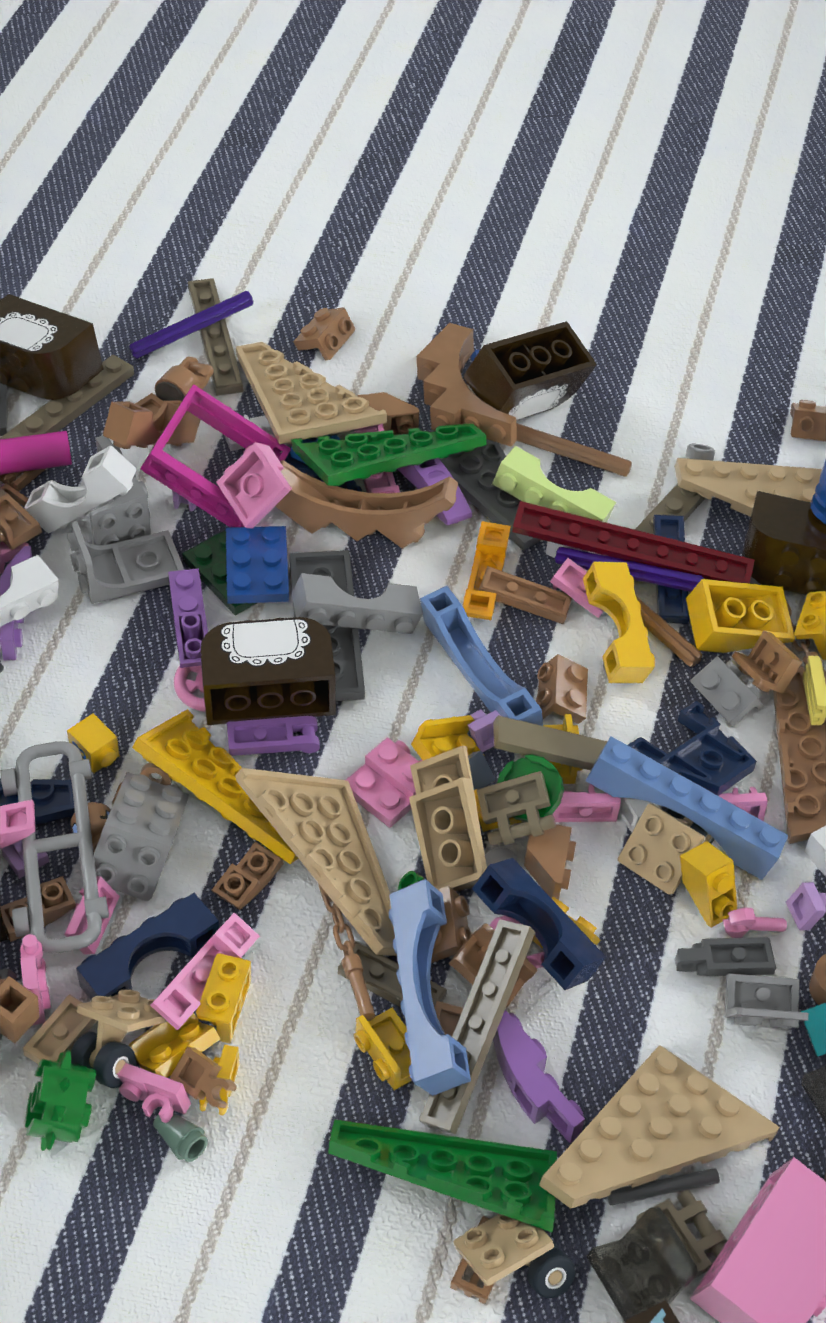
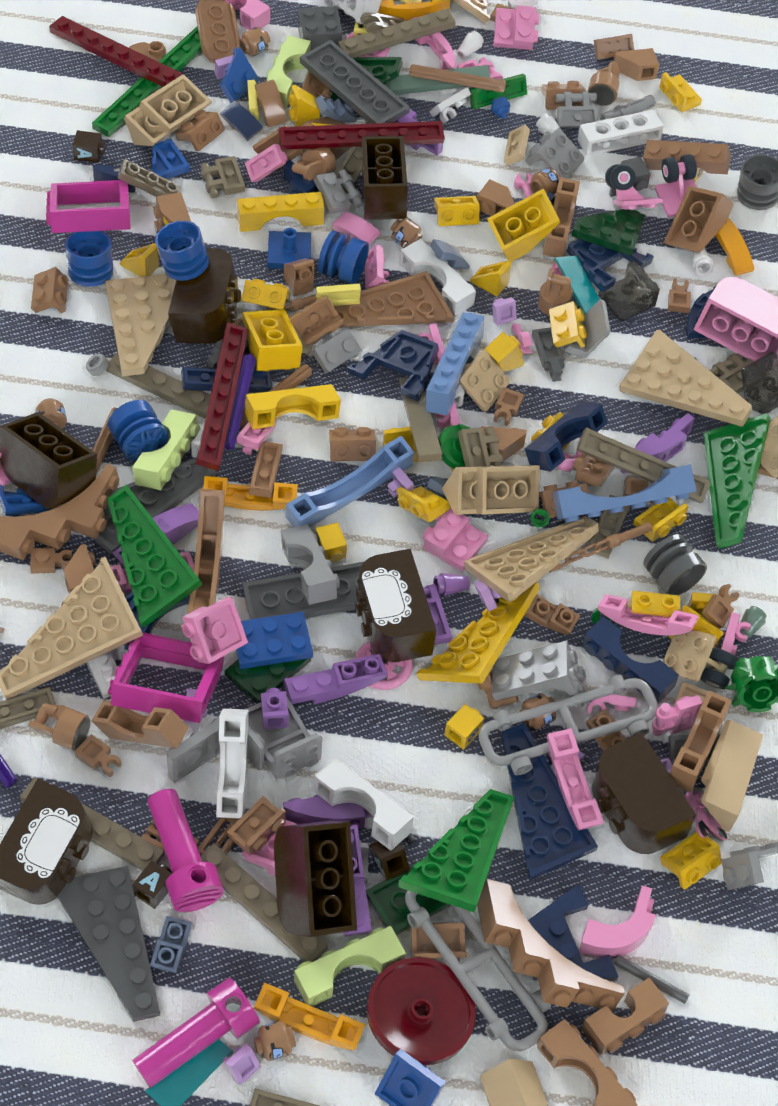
camera: 100 degrees left, 5 degrees up
(154, 550) = (274, 709): none -> medium lavender brick
(296, 1030) = (675, 565): none -> dark grey wheel
(315, 758) = (450, 583): none -> medium lavender cone
(398, 644) = (333, 541): none -> yellow brick
(413, 393) = (46, 559): none -> medium nougat plate
(584, 464) = (137, 429): none -> blue wheel
(620, 407) = (53, 410): none -> medium nougat head
(623, 885) = (508, 404): none -> medium nougat plate
(769, 979) = (567, 325): none -> yellow bracket

